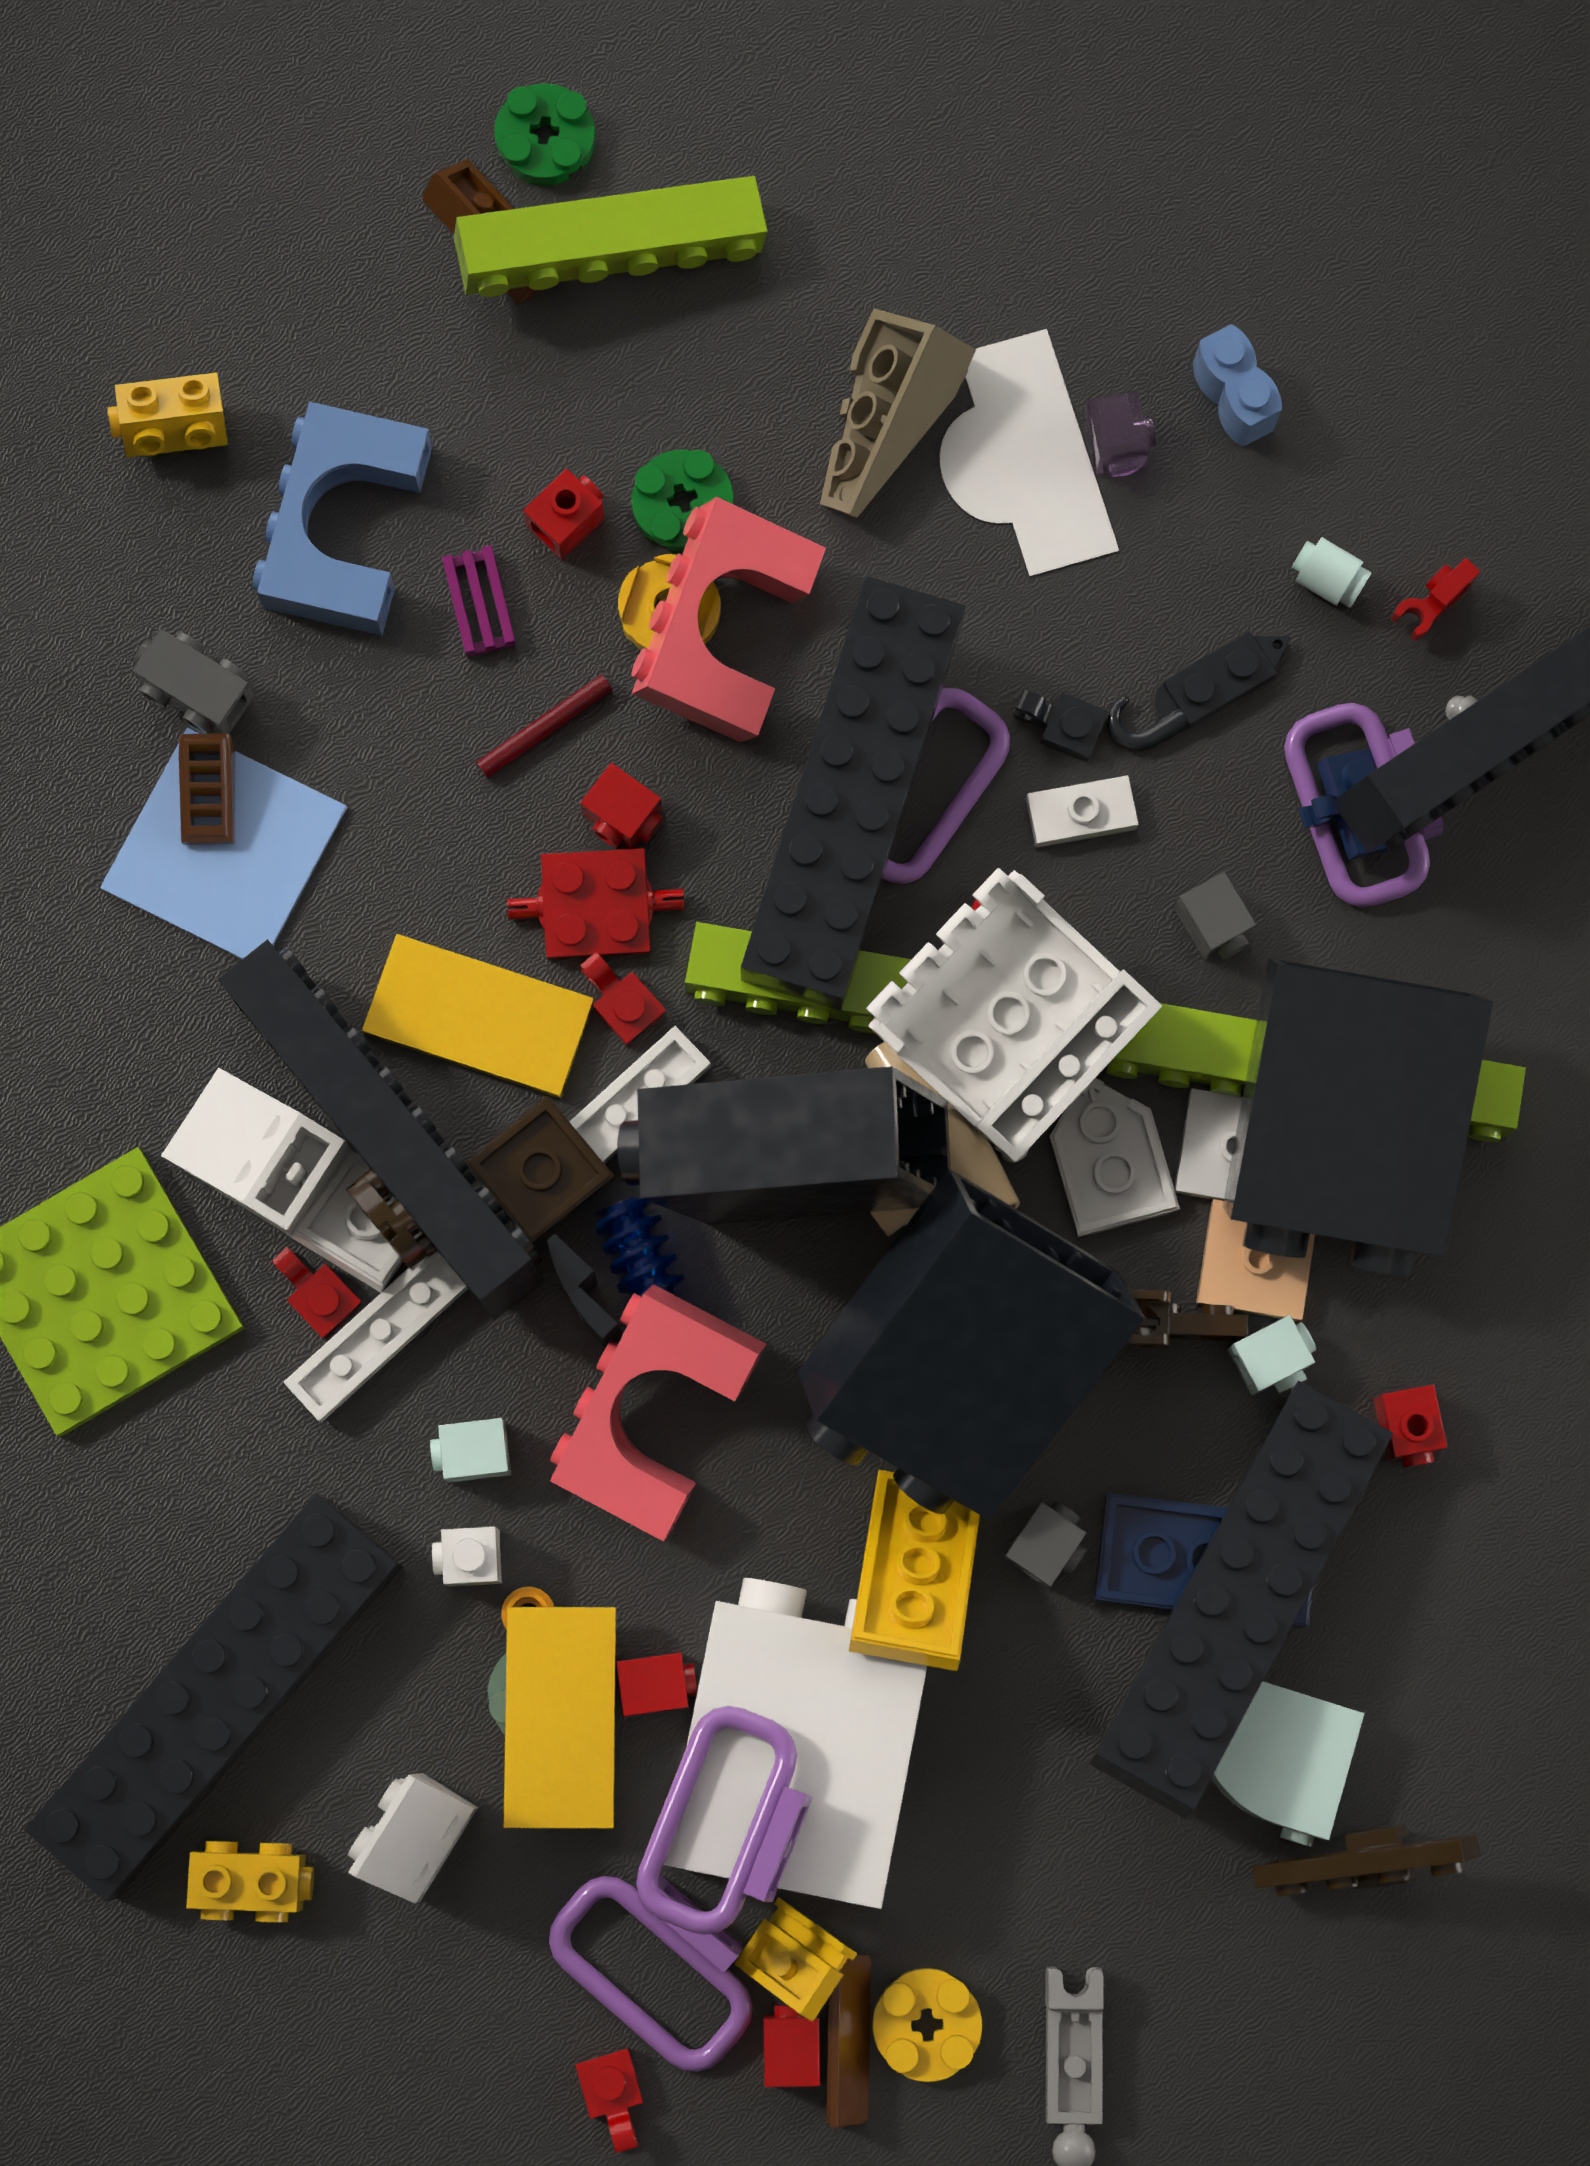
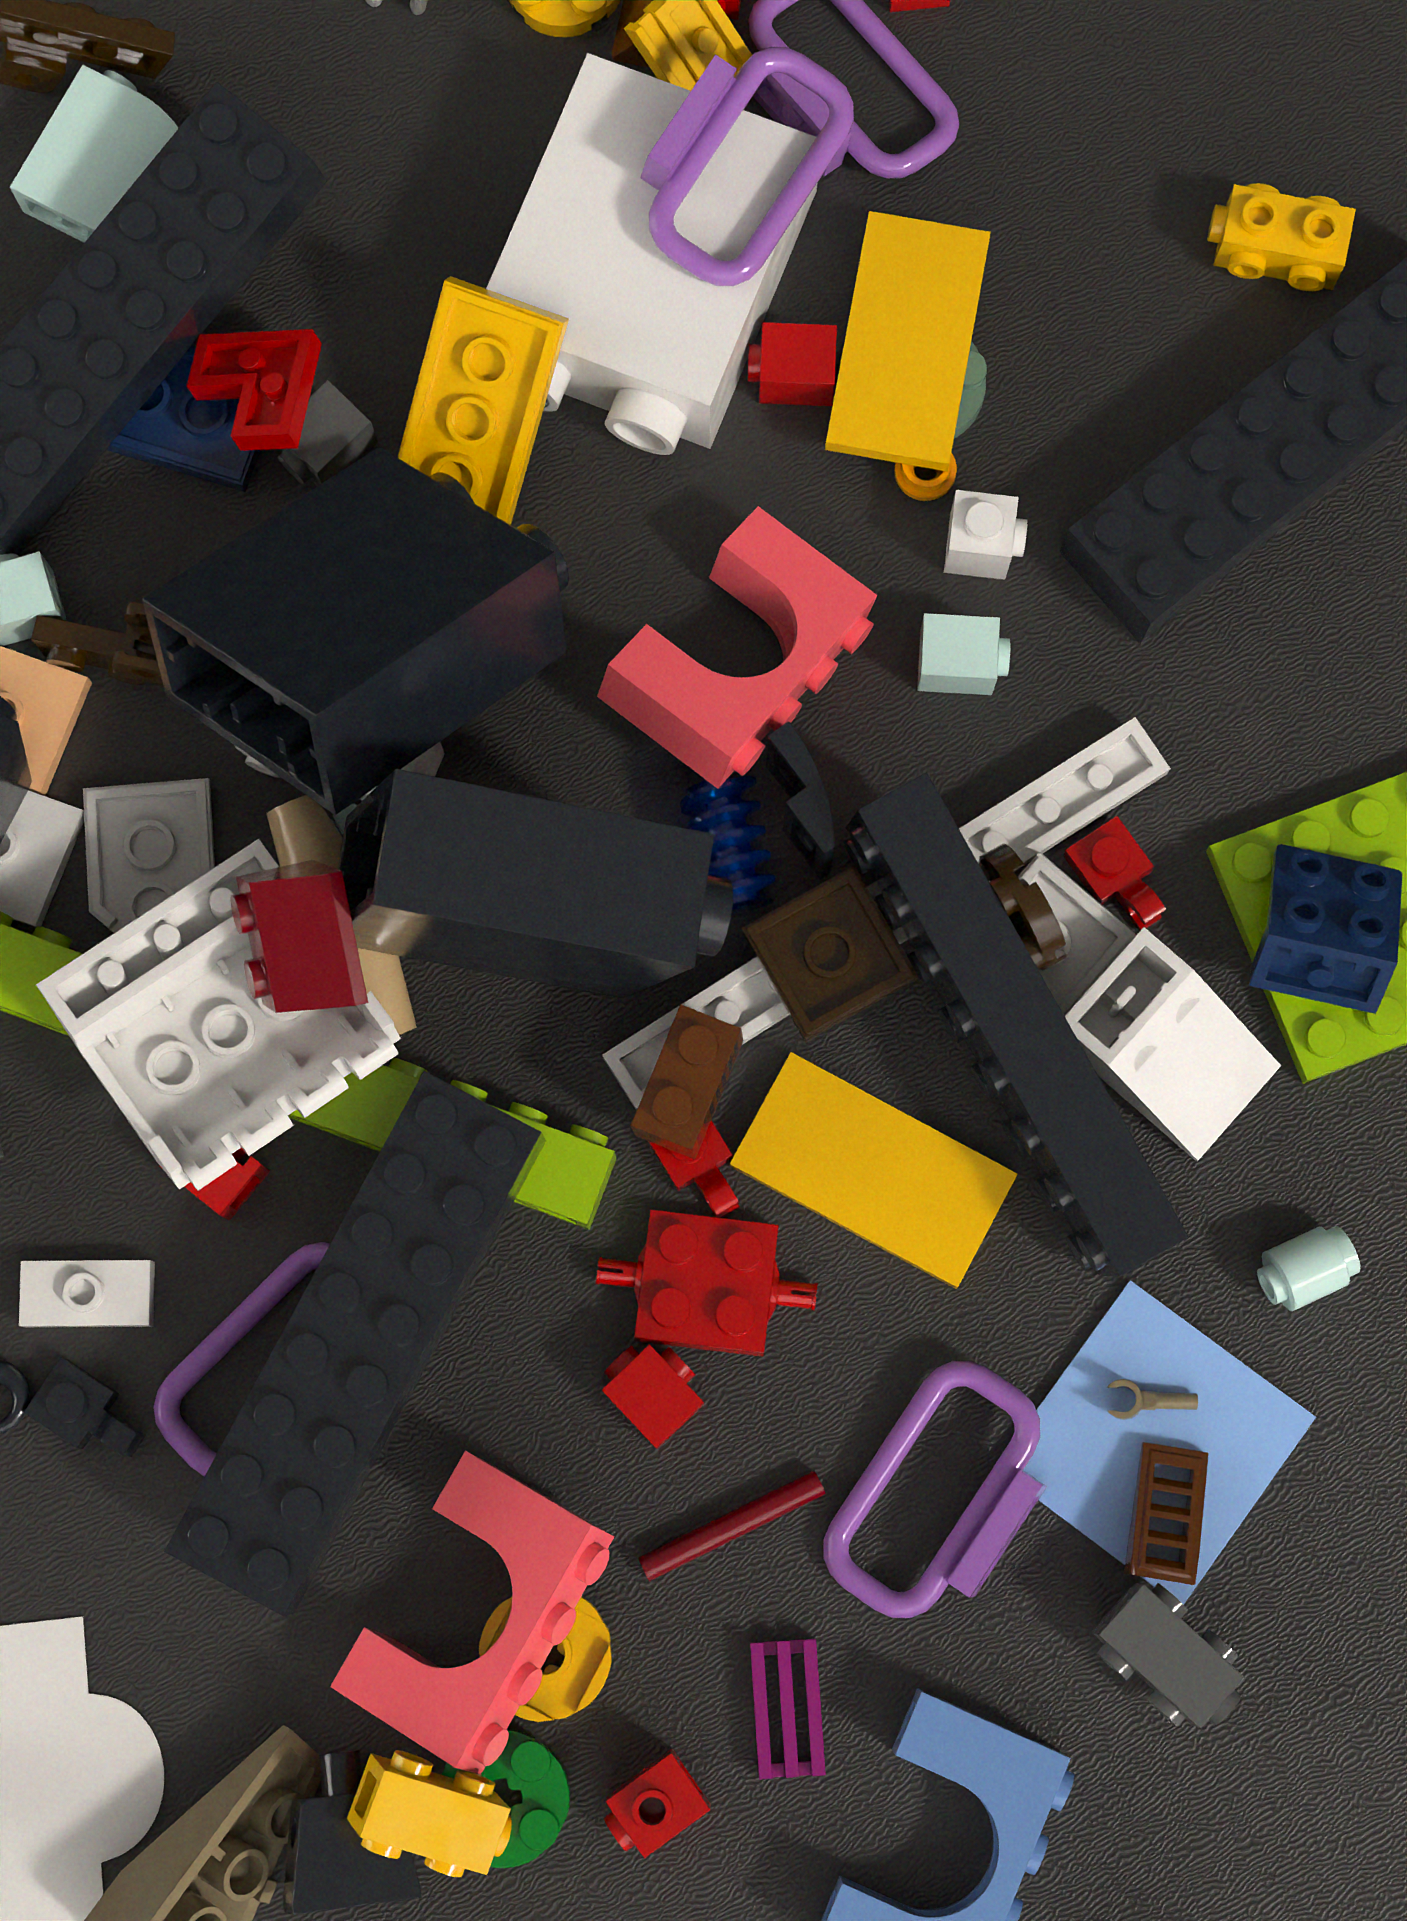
camera: 165 degrees left, 0 degrees up
(120, 997) = (1308, 1267): none -> light aqua brick
(134, 1266) = (1329, 929): none -> dark blue bracket
(234, 874) = (1153, 1400): none -> dark tan hand
(347, 754) = (984, 1526): none -> medium lavender bar
(412, 1836) = (1096, 239): white slope -> none
(635, 1040) = (687, 1081): none -> reddish brown brick
(730, 464) = (439, 1817): none -> yellow brick
(791, 442) = (325, 1853): none -> black torso
(960, 1076) = (299, 938): none -> dark red slope
(1095, 1578) = (269, 377): none -> red plate

